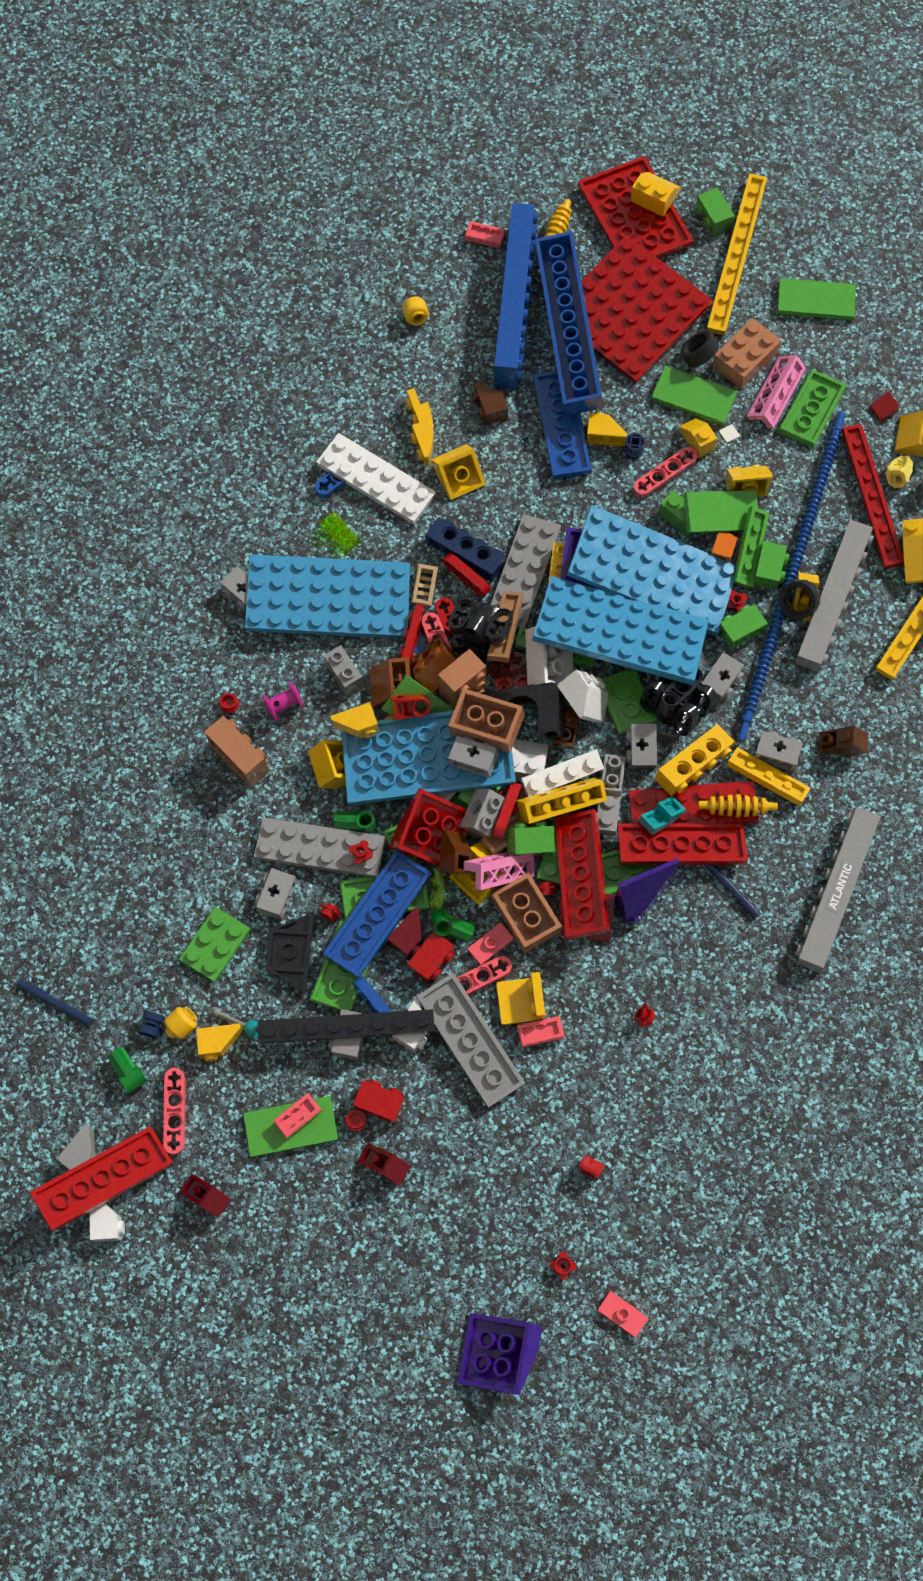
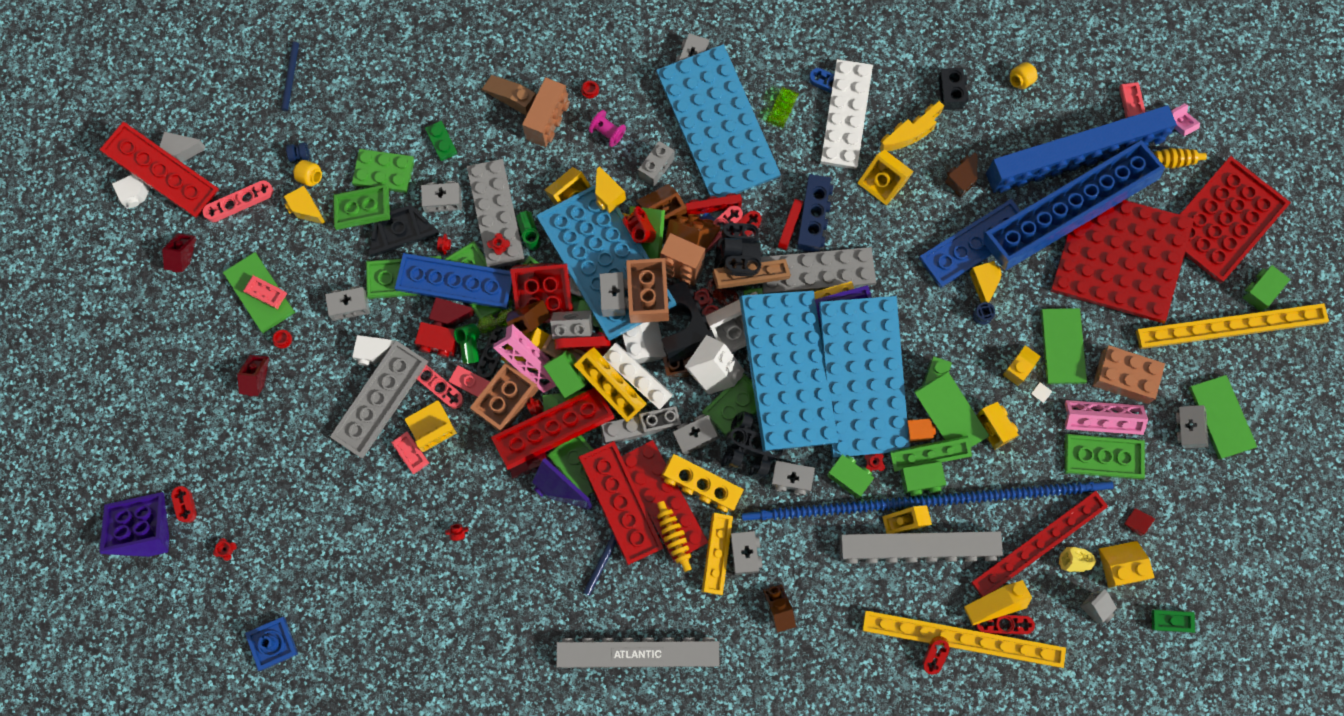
camera: 65 degrees right, 5 degrees up
(129, 1074) = (253, 155): green piece -> none
(194, 781) = (510, 93): none -> medium nougat slope
(210, 872) = (441, 140): none -> green plate
(247, 980) = (361, 207): none -> bright green tile
(250, 1027) = (325, 228): hinge -> none
(346, 1026) = (348, 297): black plate -> none
(370, 996) = (380, 312): blue beam -> none
(379, 1101) = (302, 349): red brick -> none
(396, 379) = (948, 88): none -> black brick
(429, 570) = (770, 187): tan slope -> none
(469, 900) = (482, 363): none -> black beam
(496, 1287) = (179, 505): none -> red beam
(529, 198) = (1185, 122): none -> bright pink bracket
(591, 1167) = (312, 539): red slope -> none
(622, 1314) = (203, 613): coral plate -> none
(654, 193) = (1254, 225): yellow slope -> none
(662, 816) = (637, 476): teal slope -> none
(667, 474) = (971, 353): coral beam -> none
(685, 1250) = (271, 643): none -> blue plate
(699, 348) = (1109, 330): black tyre -> none
(784, 599) = (903, 523): black tyre -> none
(811, 316) = (1199, 436): none -> light grey brick

